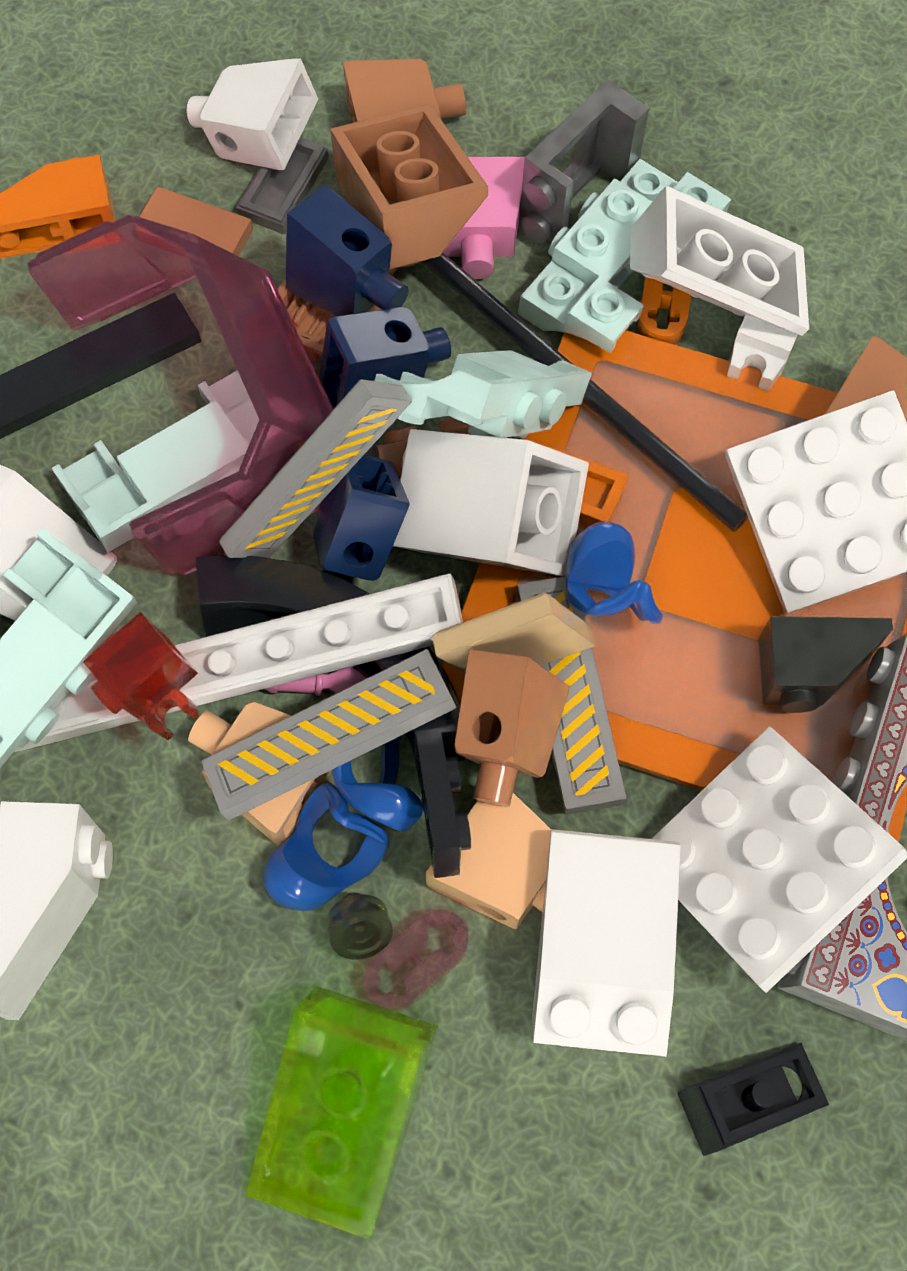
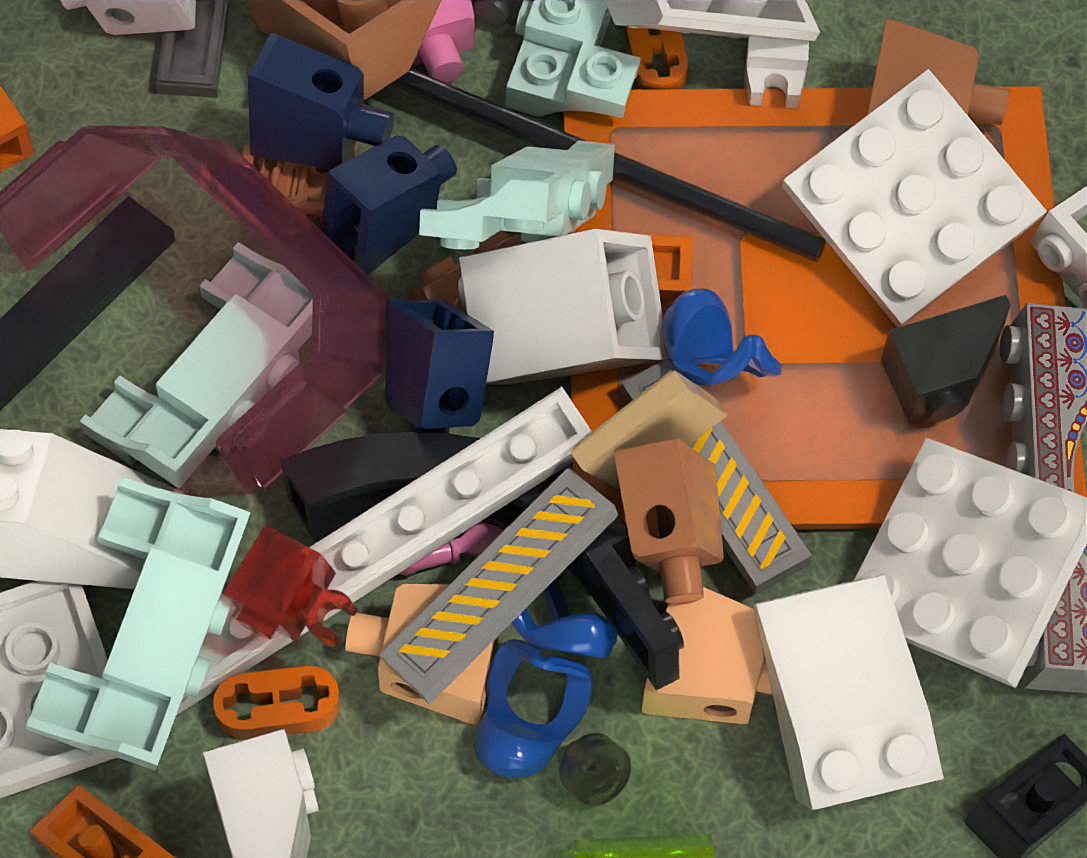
camera: 20 degrees left, 5 degrees down
(117, 753) = (275, 687): none -> orange beam
(199, 218) = (113, 108): nougat tile -> none
(315, 468) = (385, 328): light grey tile -> none
(405, 949) = (649, 777): beam -> none

